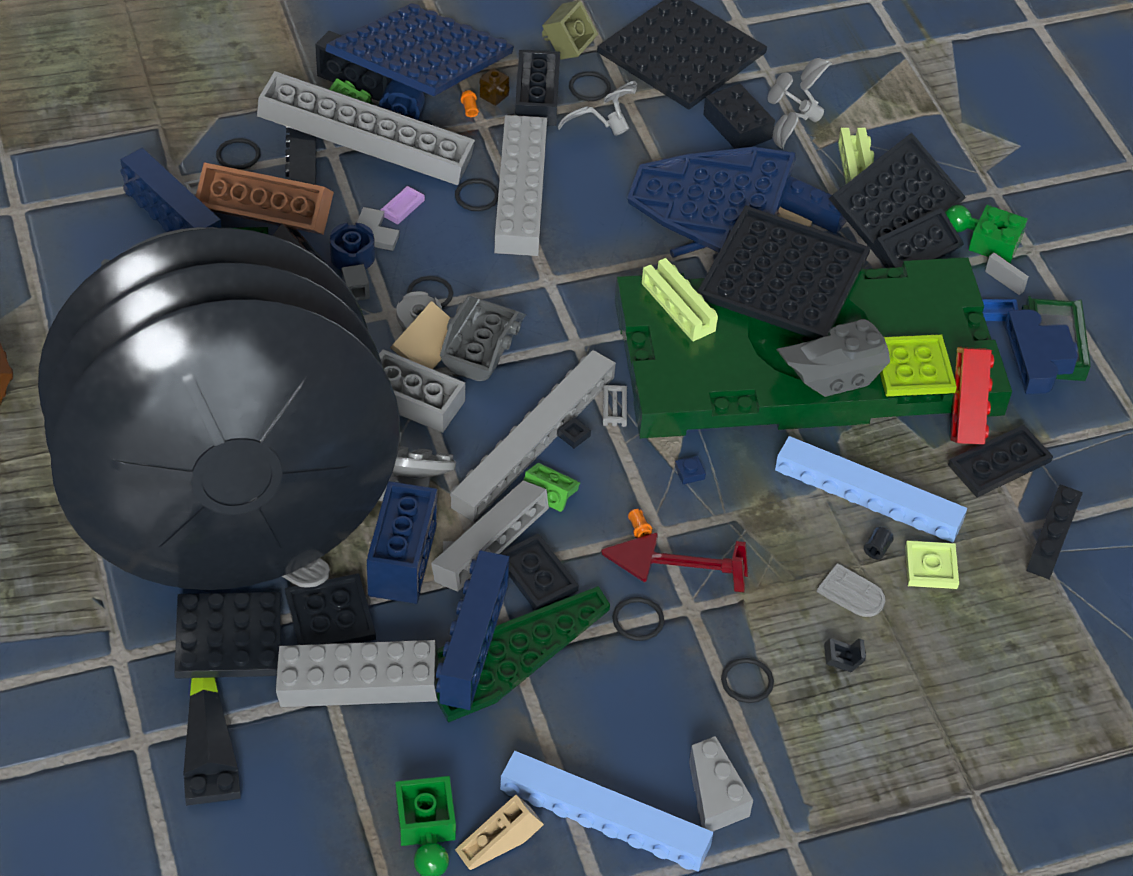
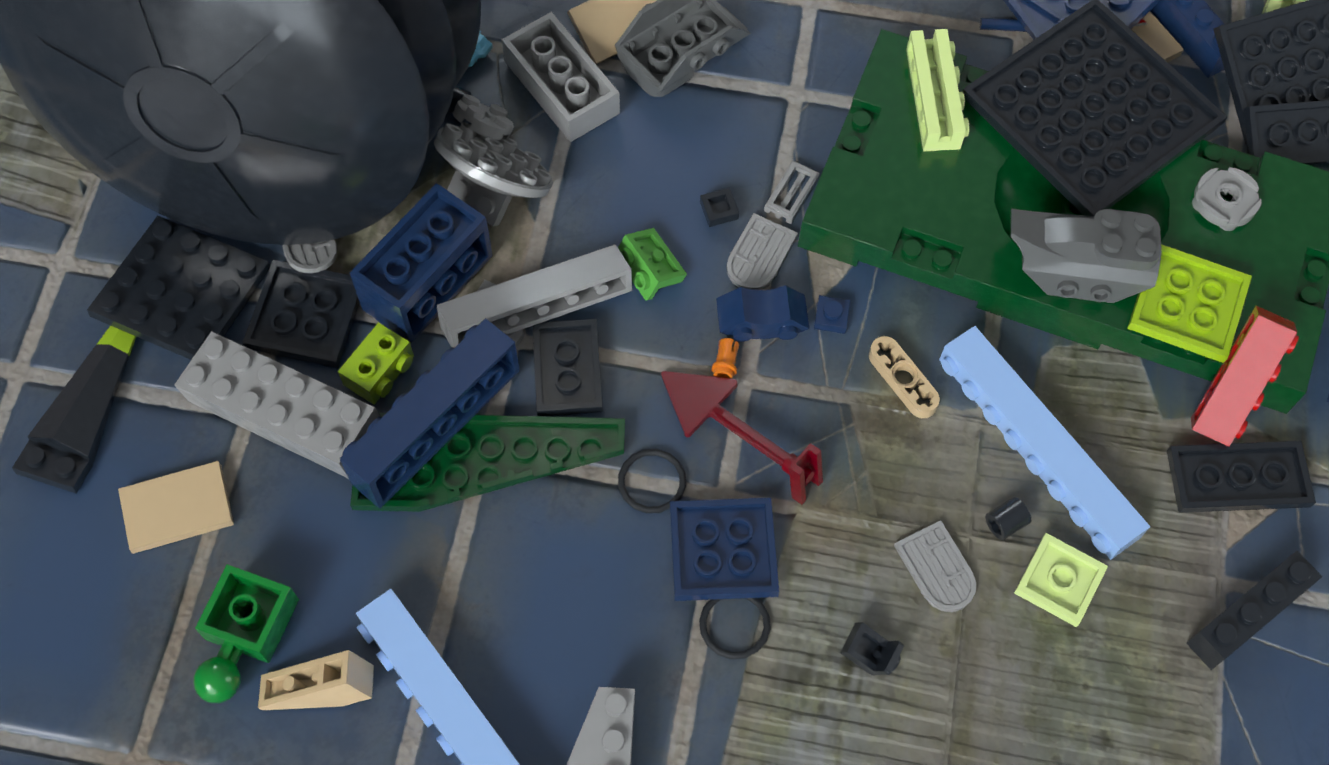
camera: 30 degrees right, 15 degrees up
(321, 774) = (175, 507): none -> tan tile
(407, 618) = (376, 363): none -> lime brick
(531, 436) = (668, 189): light grey brick -> none
(617, 452) = (759, 253): none -> light grey window
(646, 486) = (762, 313): none -> dark blue brick
(713, 636) = (723, 549): none -> dark blue plate
(748, 476) = (902, 390): none -> tan beam
(904, 305) = (1219, 211): none -> light grey plate

